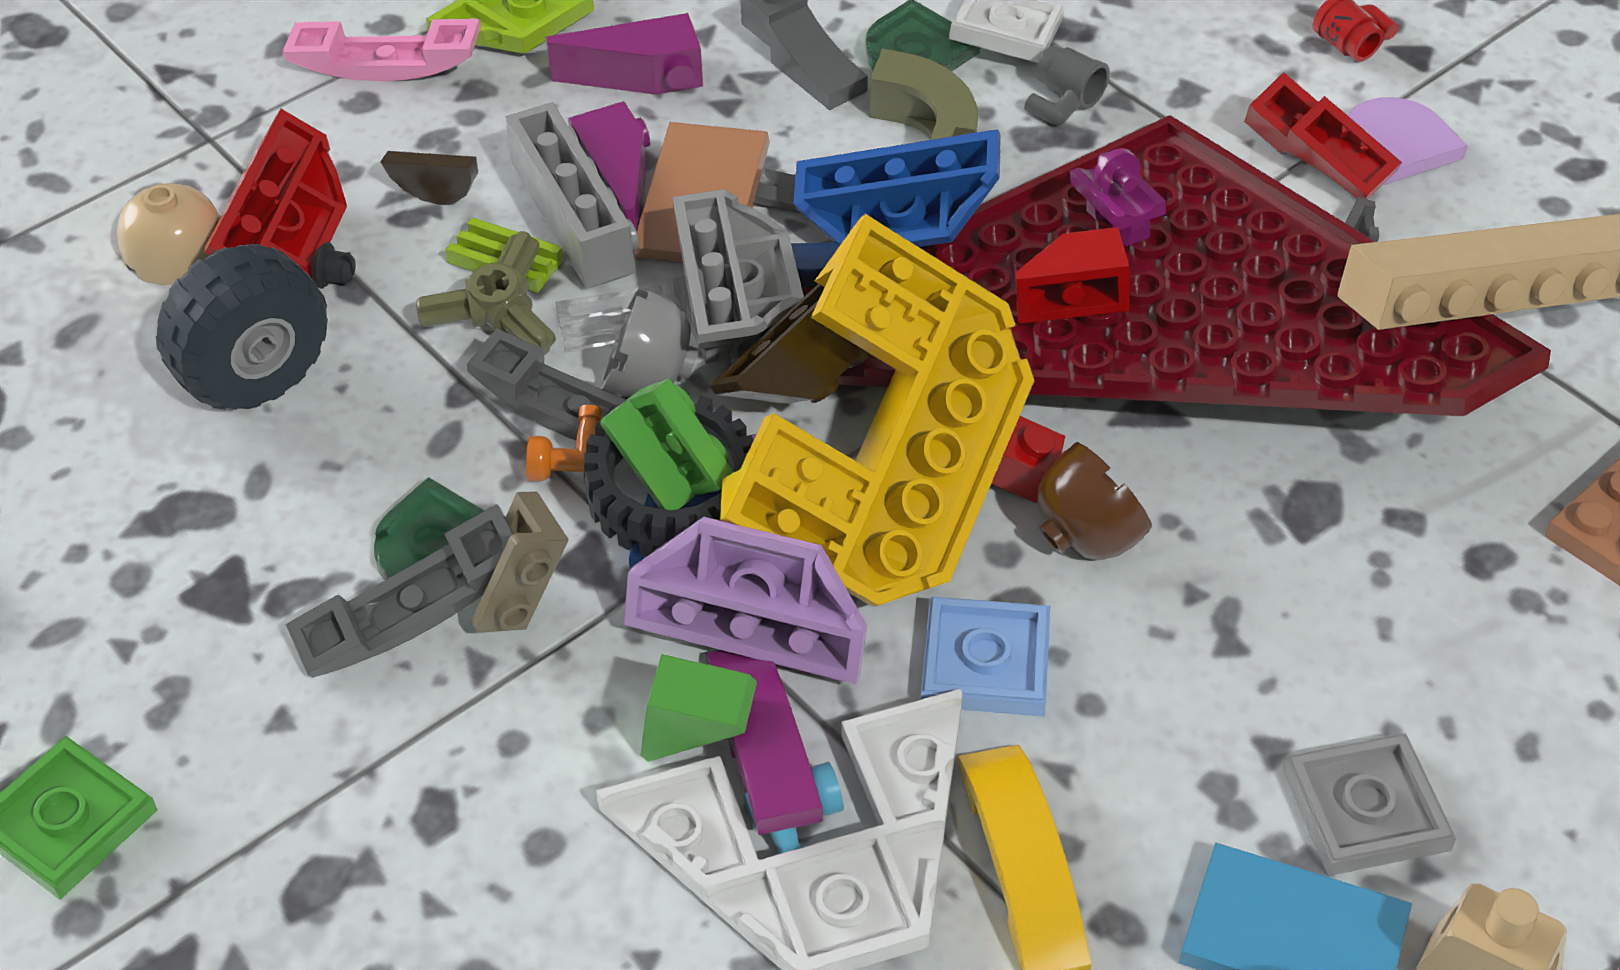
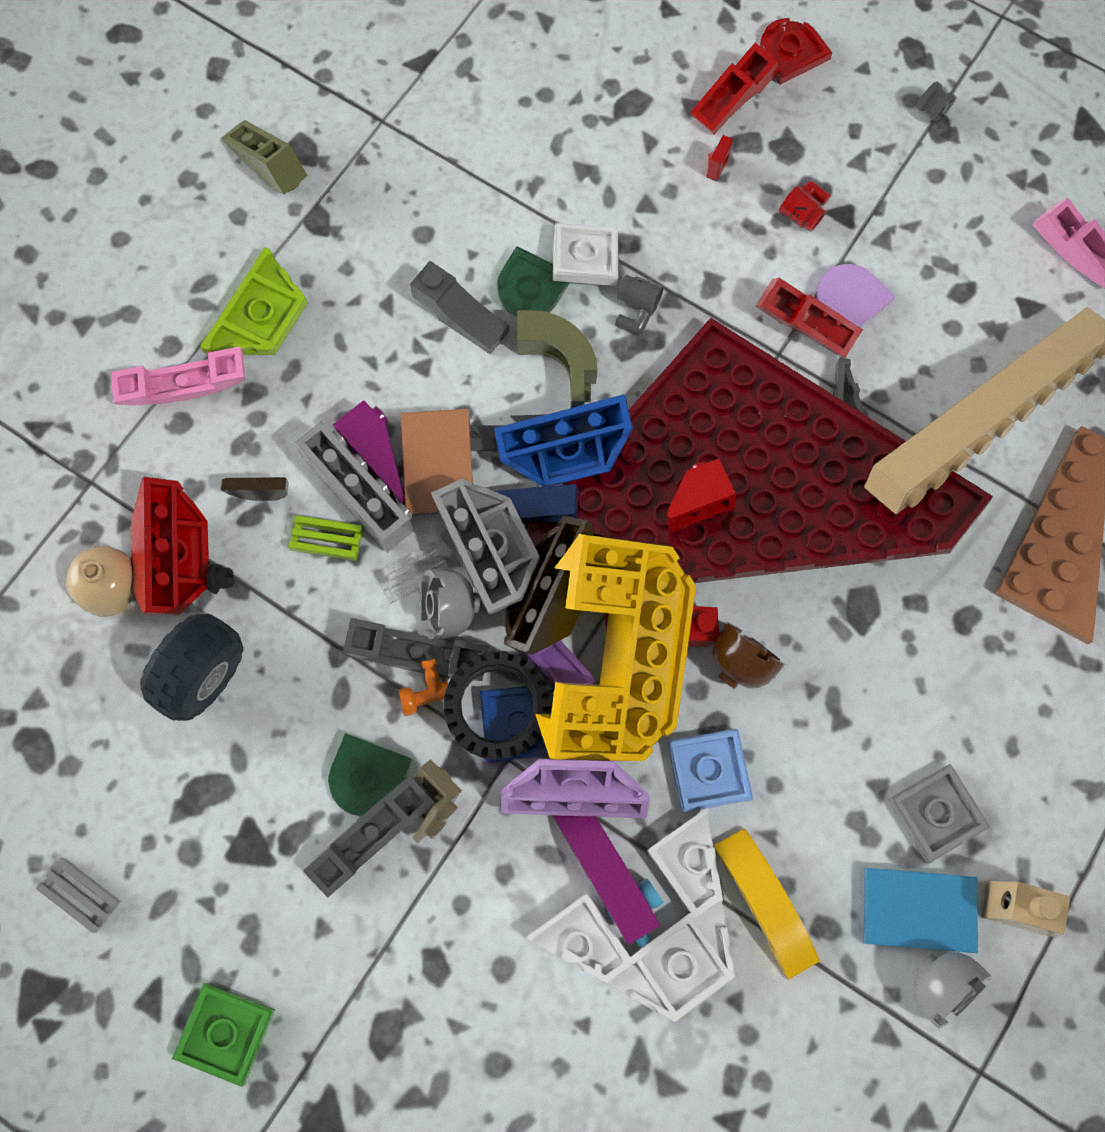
camera: 20 degrees left, 25 degrees up
(494, 297) = (350, 593): olive bush -> none
(632, 56) = (353, 346): magenta slope -> none
(667, 445) = (492, 698): bright green bracket -> none
(694, 706) = (568, 872): bright green slope -> none
(1119, 194) = (706, 416): magenta hips -> none

